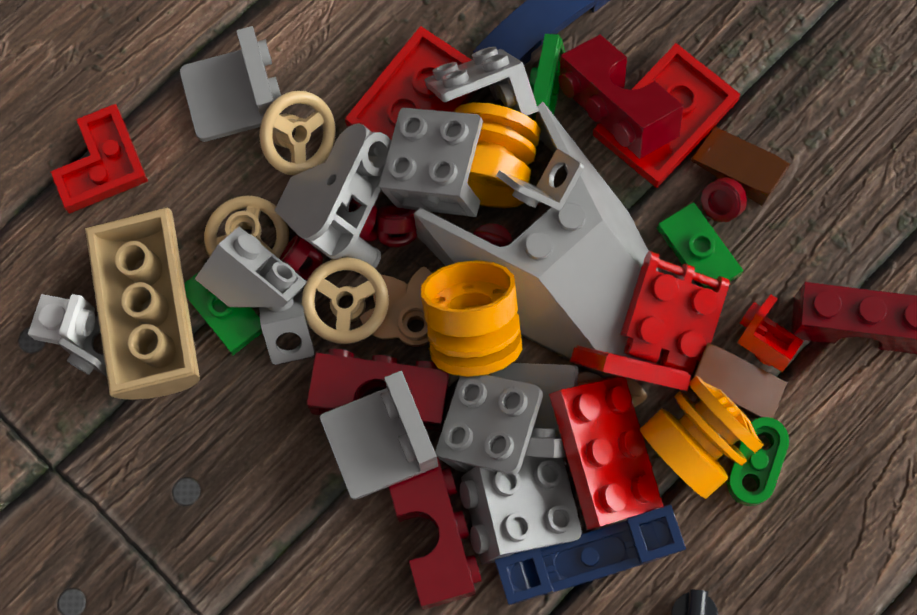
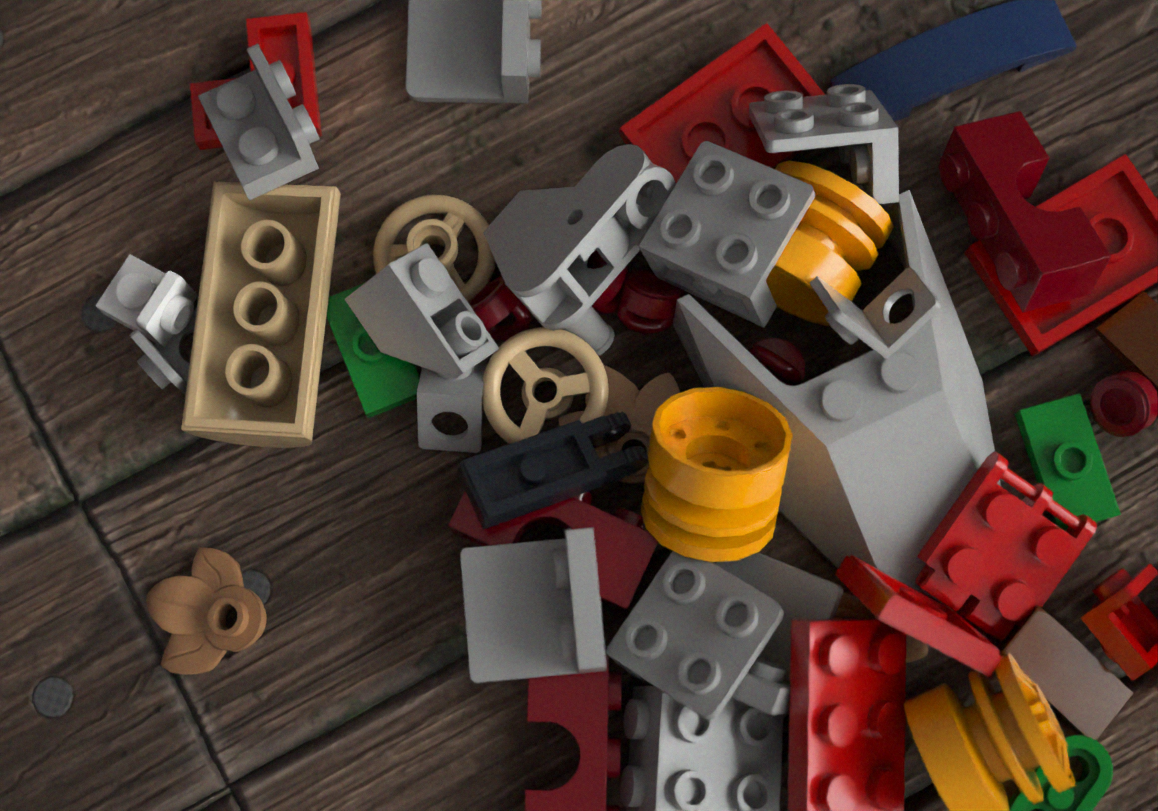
camera: 15 degrees right, 5 degrees up
(106, 183) = (260, 129): none -> light grey bracket
(154, 514) = (197, 609): none -> medium nougat plate
(279, 130) = (526, 112): tan piece -> none
(362, 346) = (547, 468): none -> black hinge
(545, 77) = (923, 150): green plate -> none

